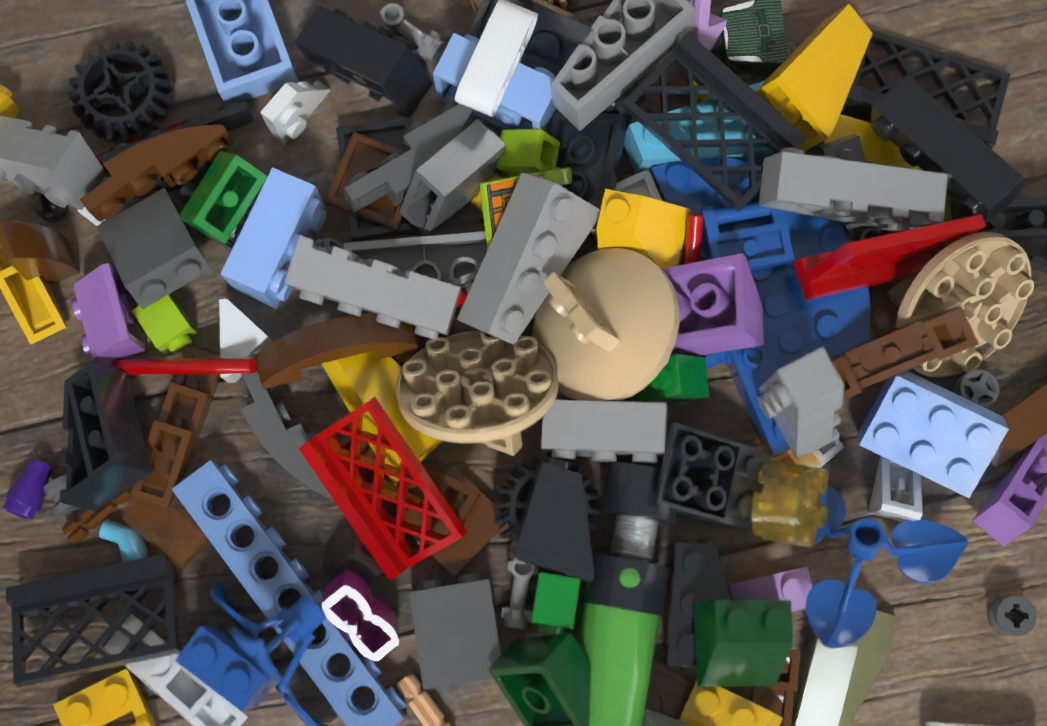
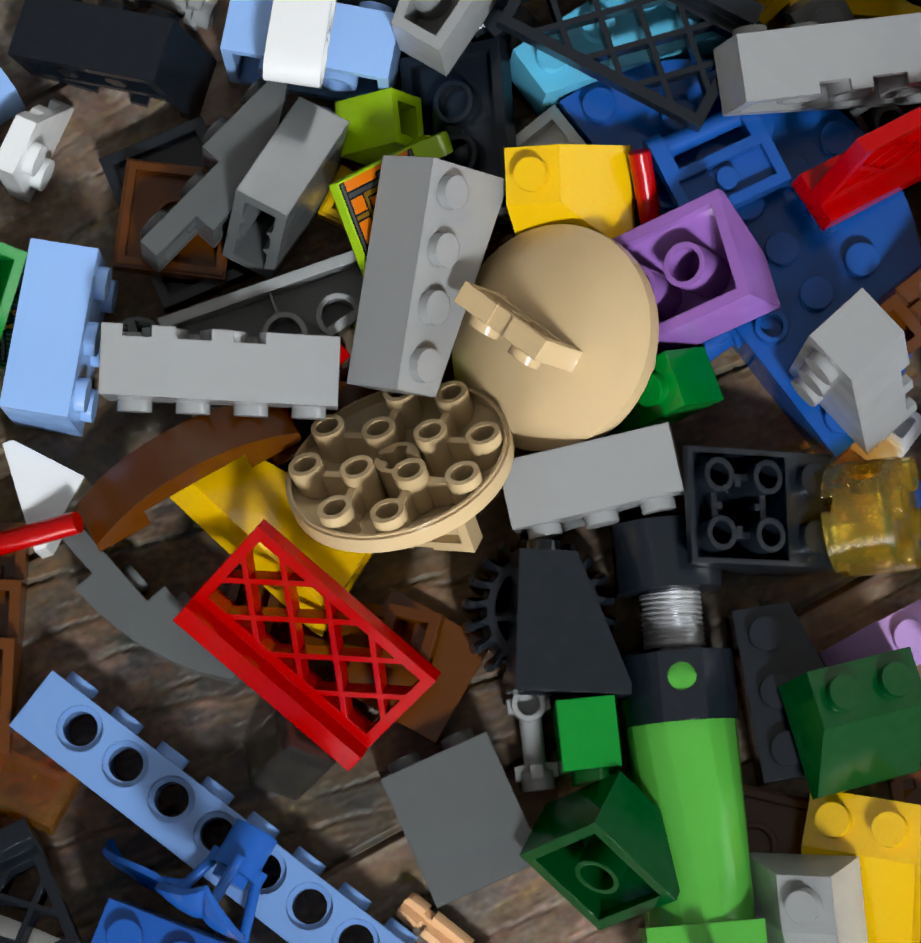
camera: 15 degrees left, 0 degrees up
(367, 619) = (311, 824): magenta brick -> none

